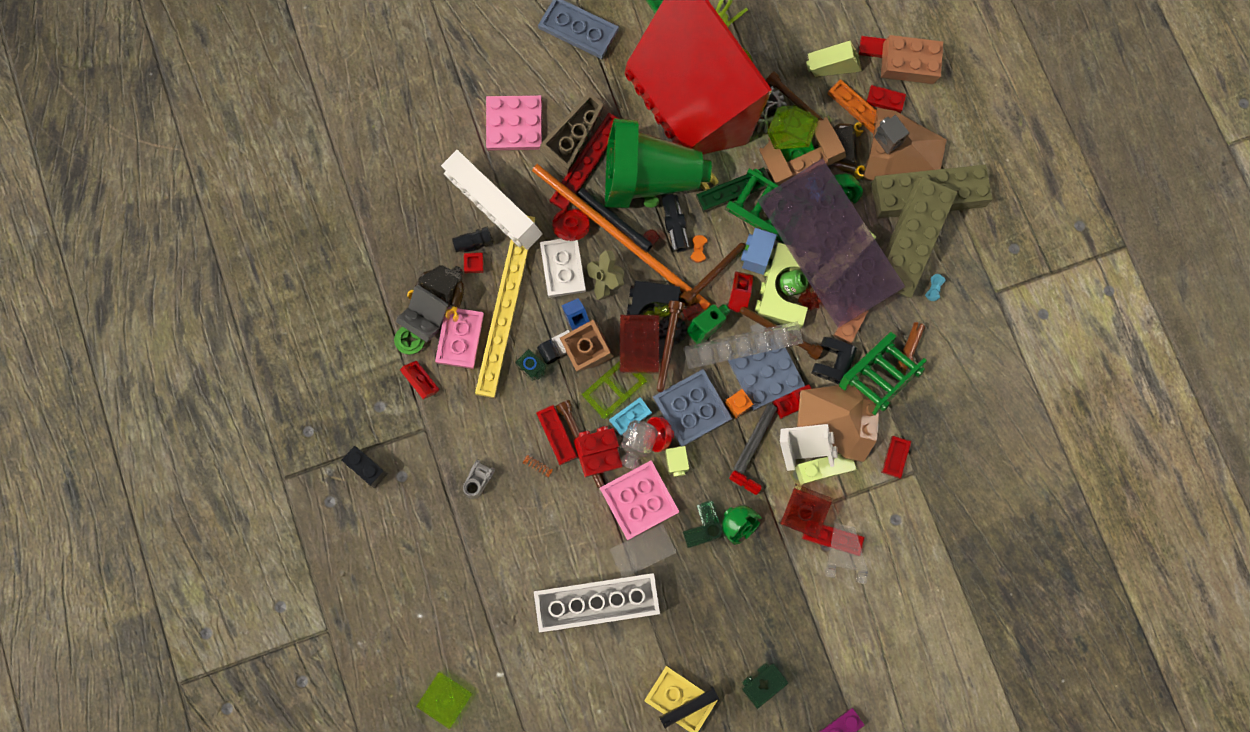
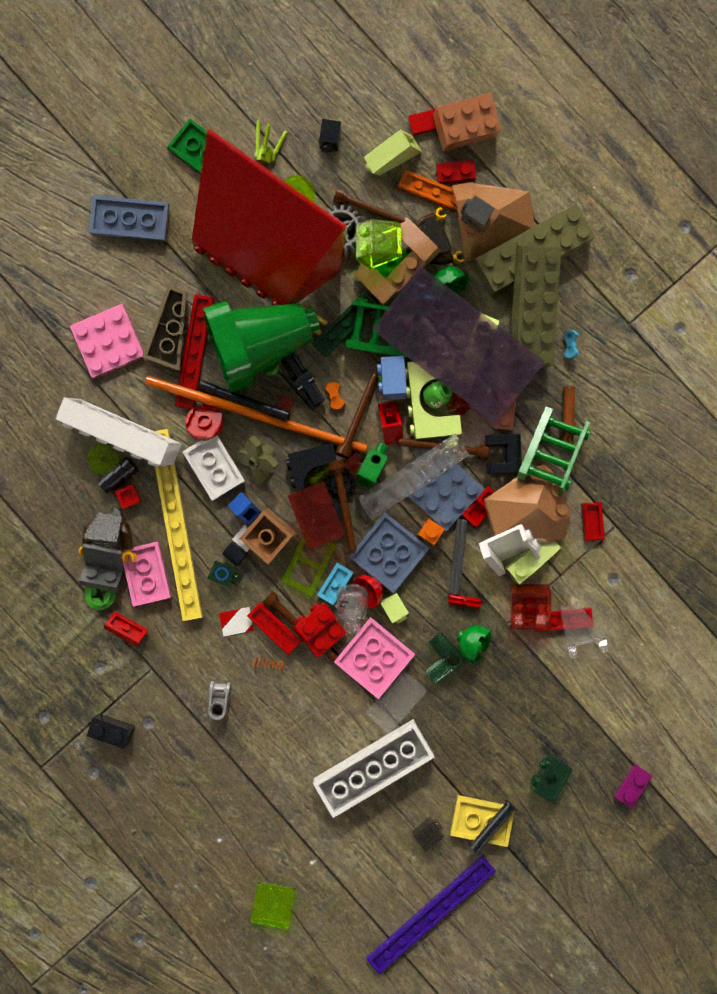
camera: 20 degrees left, 10 degrees up
(462, 214) = (95, 455): none -> clear neon green piece
(523, 416) = (236, 621): none -> white sticker
(624, 690) = (428, 833): none -> clear smoke brick
(785, 25) = (330, 135): none -> black brick

